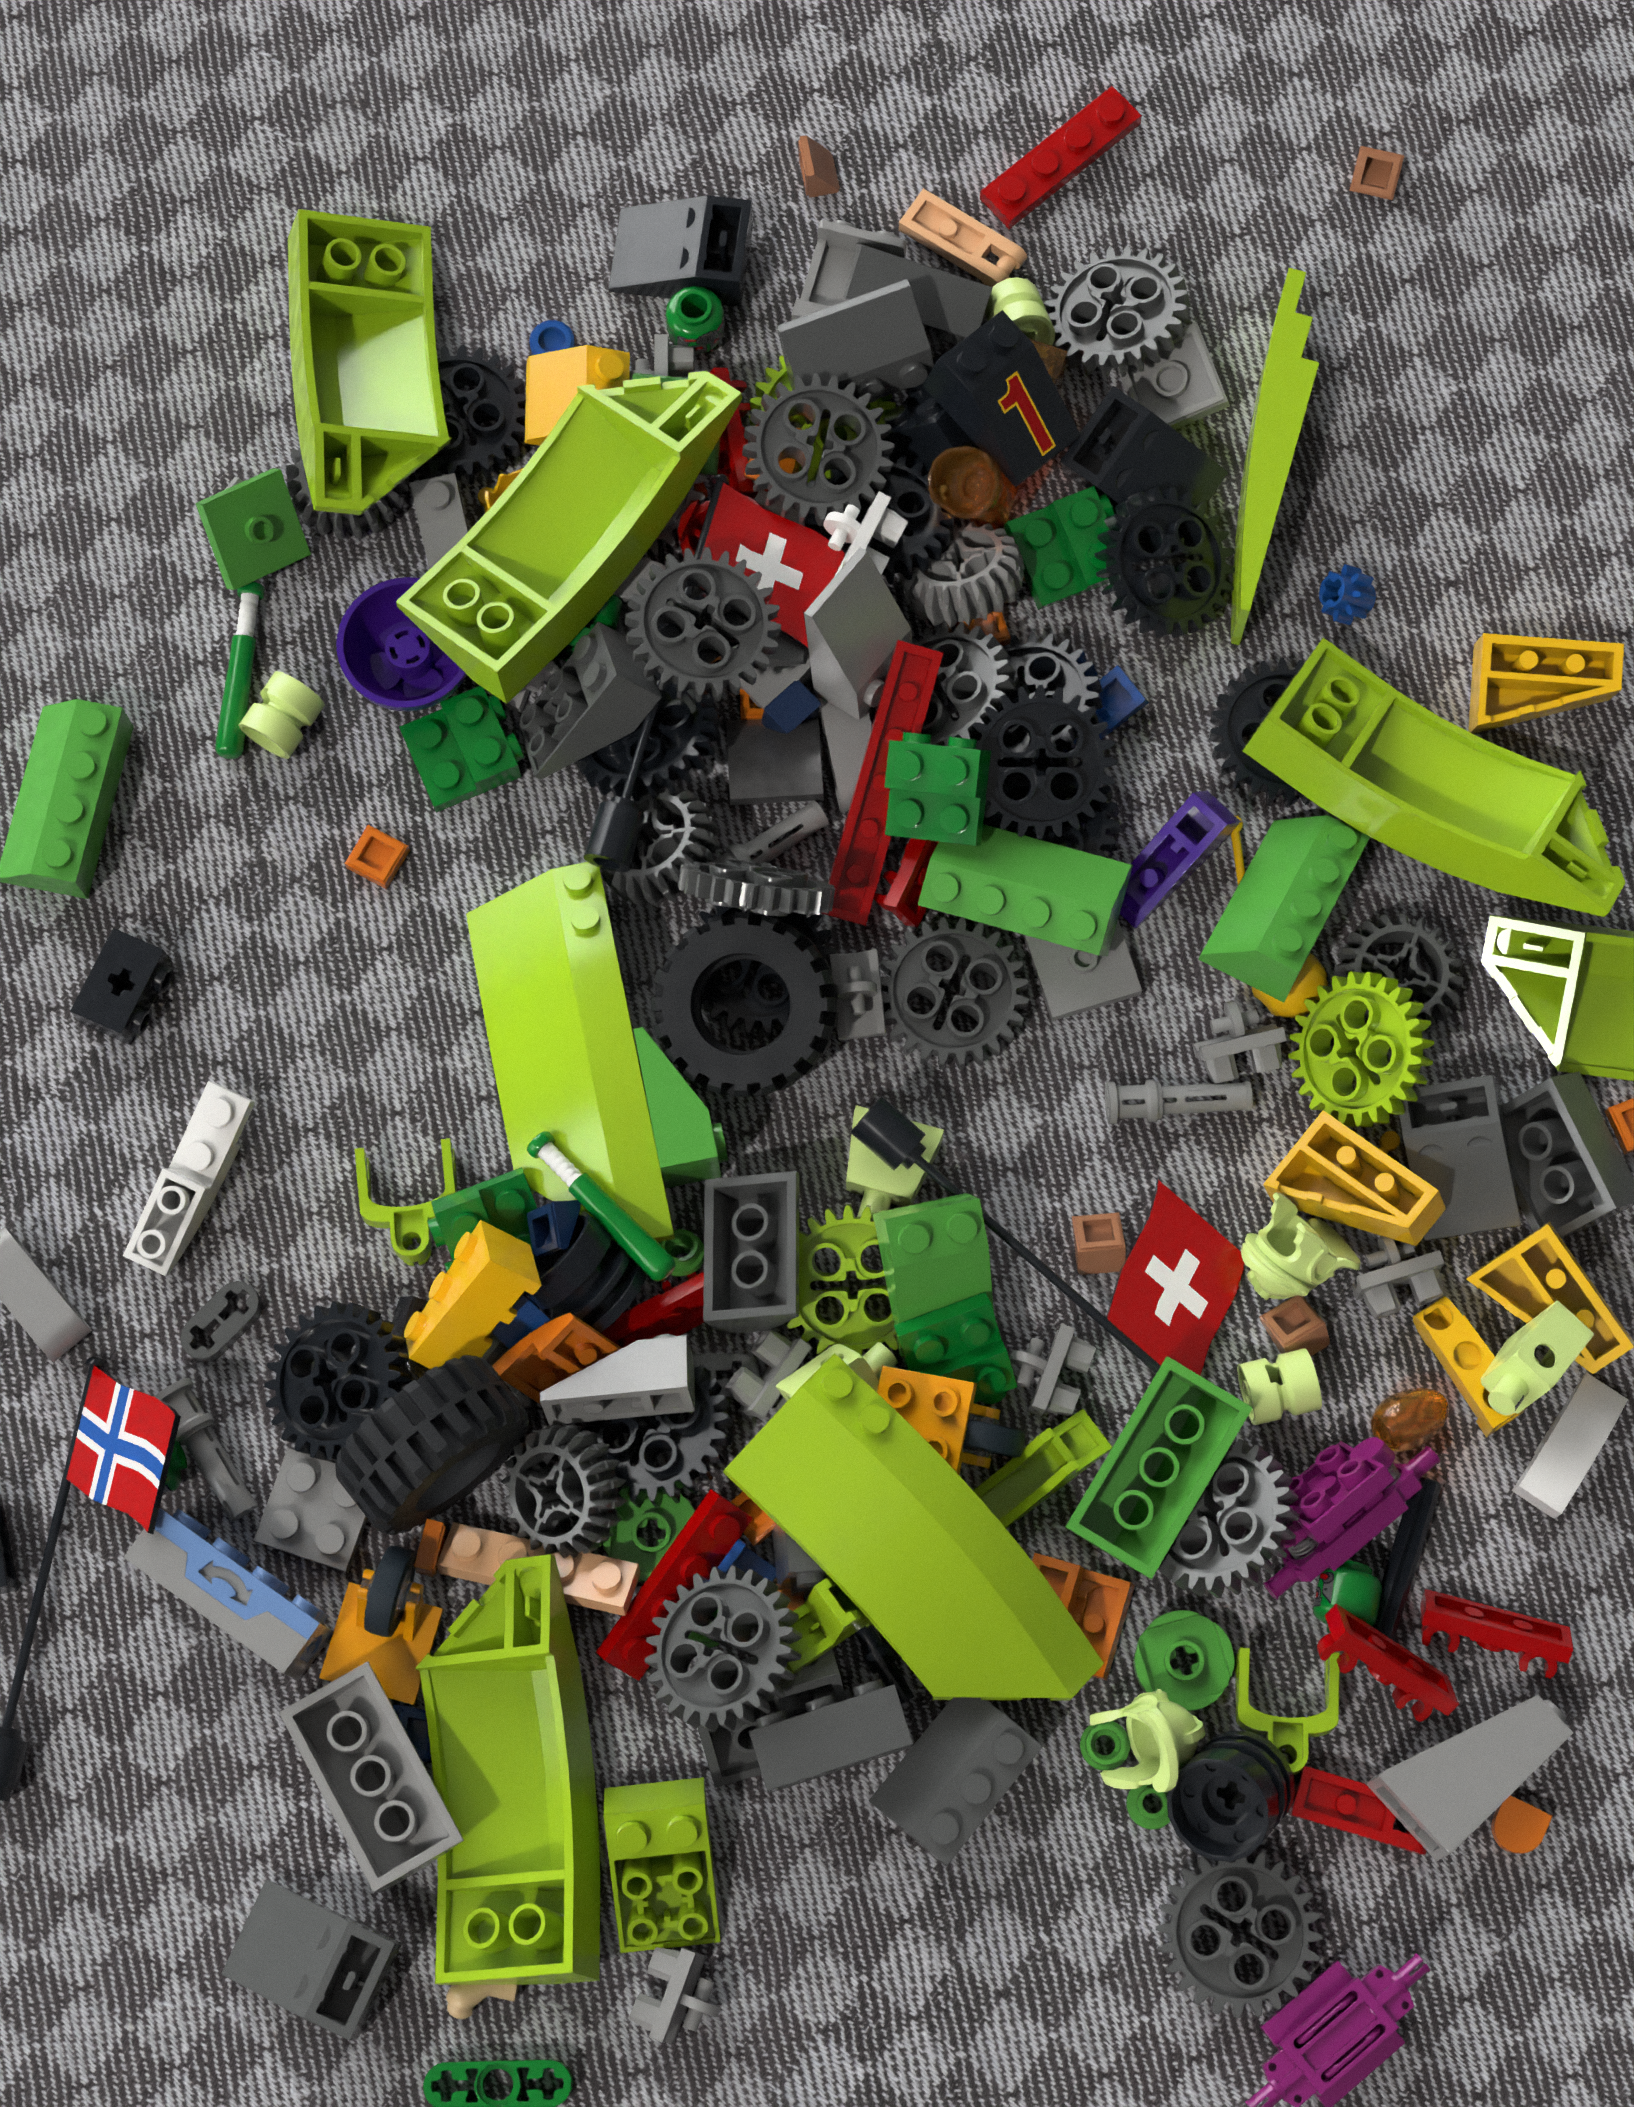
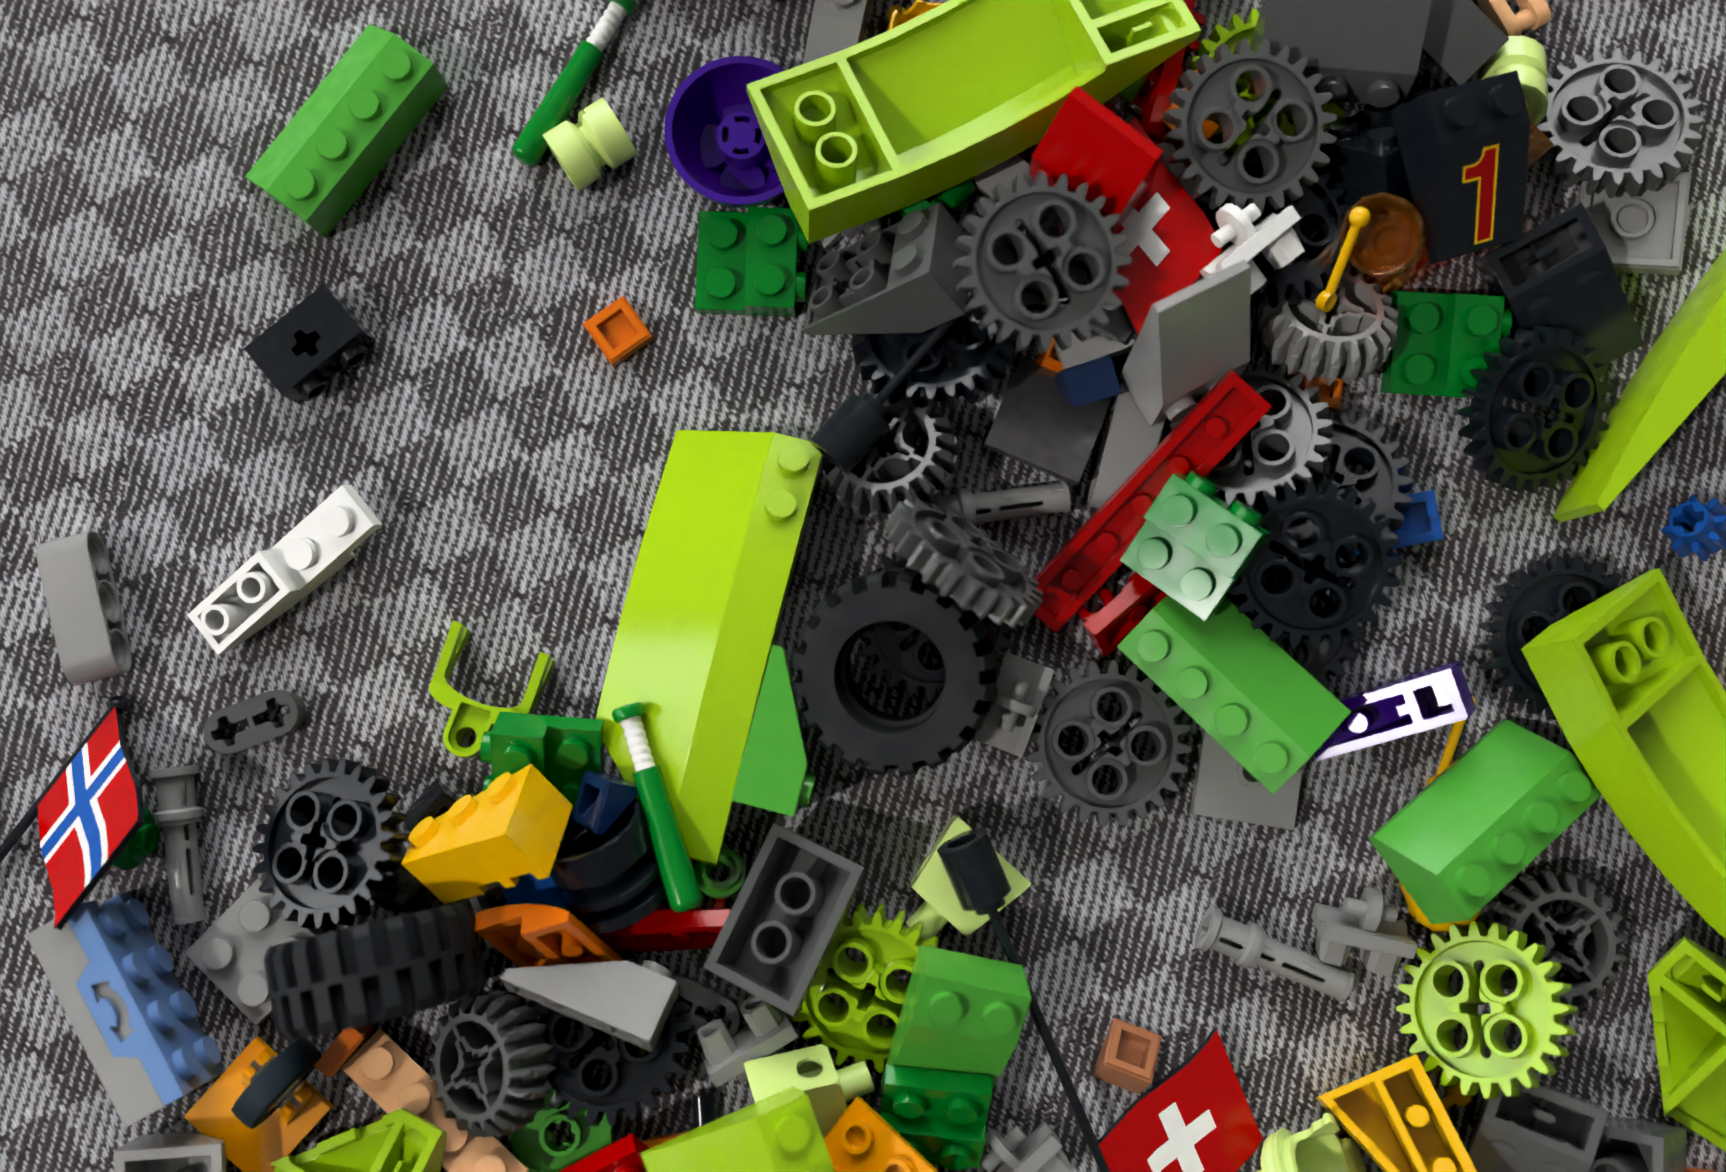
camera: 20 degrees right, 10 degrees up
(707, 517) = (1100, 150): none -> red slope
(949, 552) = (1327, 298): none -> yellow hinge

